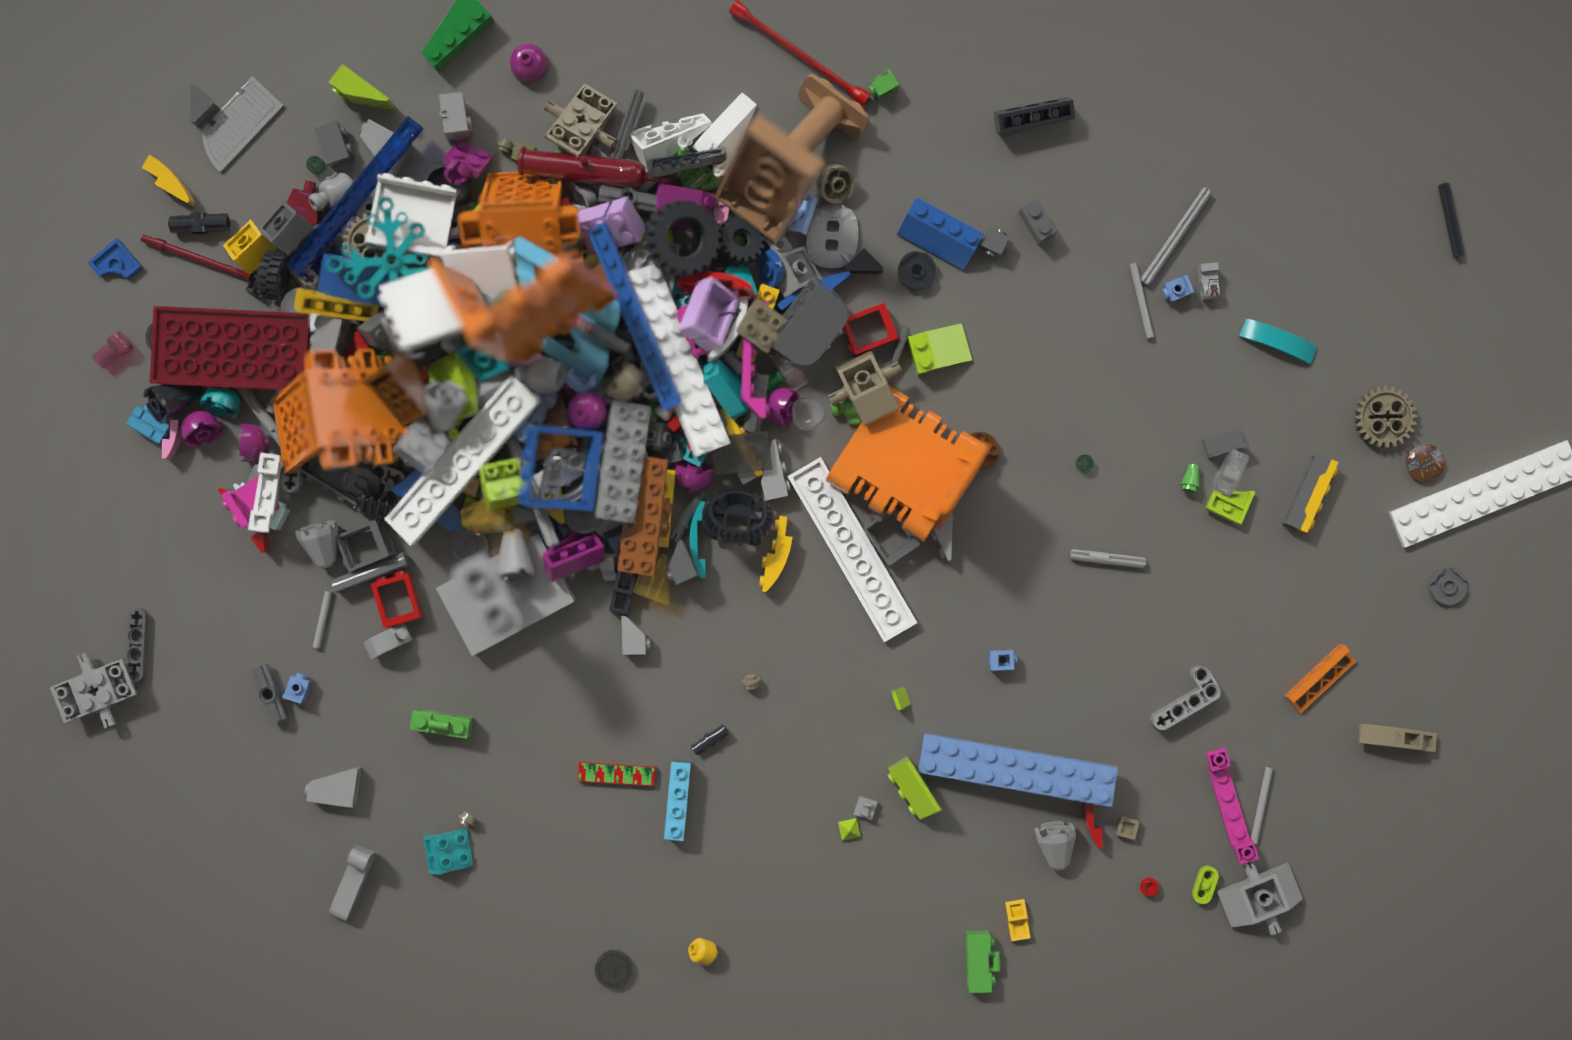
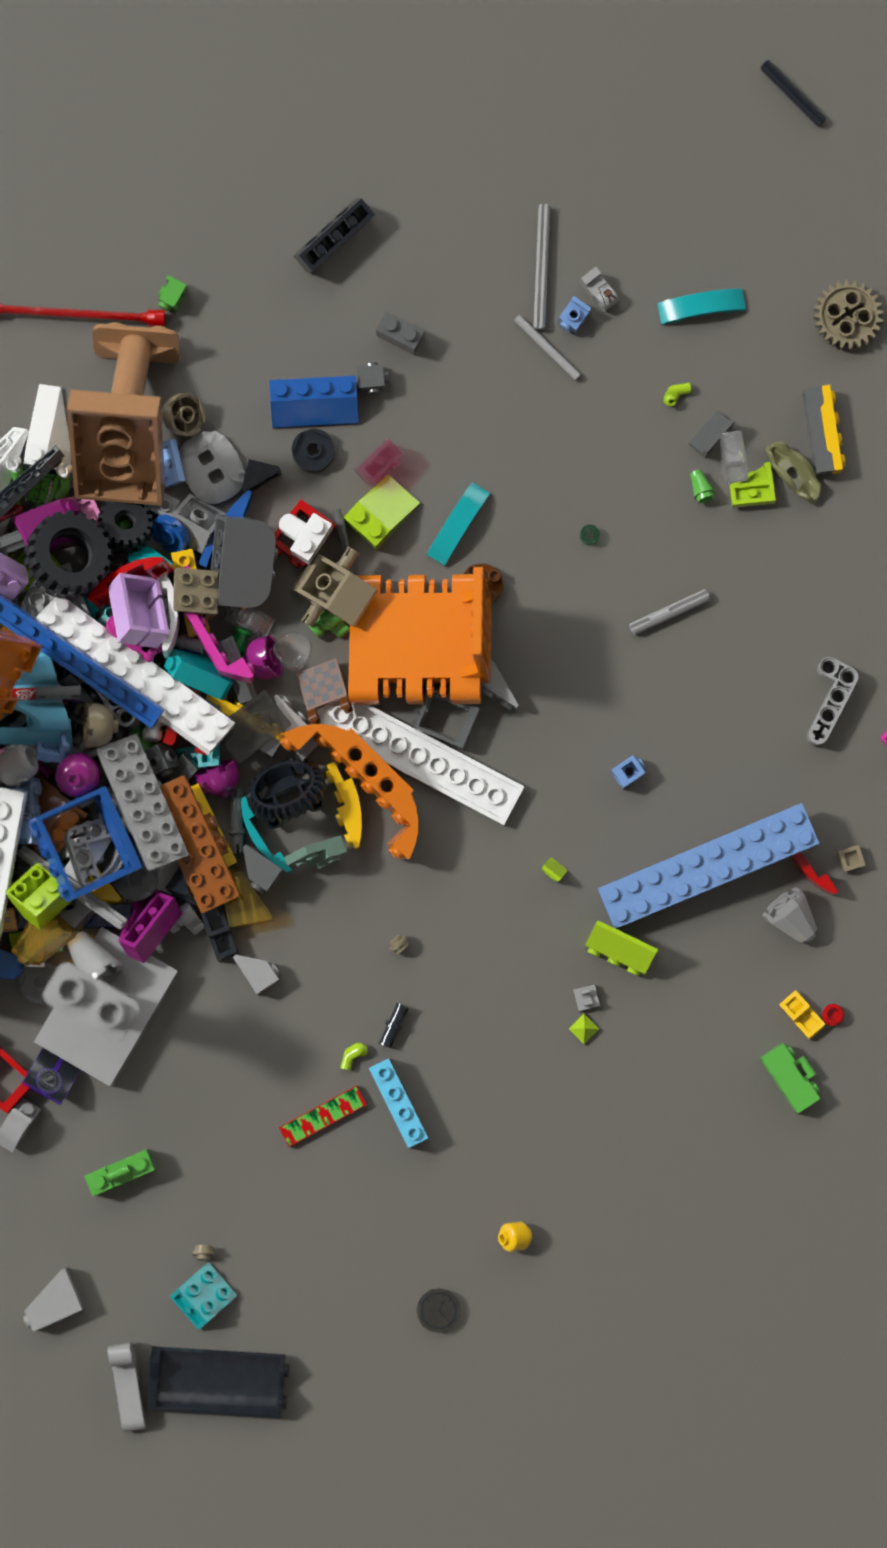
camera: 35 degrees left, 5 degrees down
(419, 921) = (217, 1382): none -> black cylinder
(433, 621) = (51, 1076): none -> black slope
(666, 740) = (351, 1053): none -> lime arm
(732, 580) = (318, 854): none -> sand green plate
(814, 455) = (323, 686): none -> flag
(816, 572) = (396, 798): none -> orange slope
(871, 335) = (307, 536): none -> white brick
(959, 310) = (384, 456): none -> clear pink brick
(990, 393) = (457, 523): none -> teal slope
(1040, 934) = (832, 1014): none -> red plate
(1216, 394) = (673, 393): none -> lime arm
(1267, 495) = (784, 458): none -> olive piece

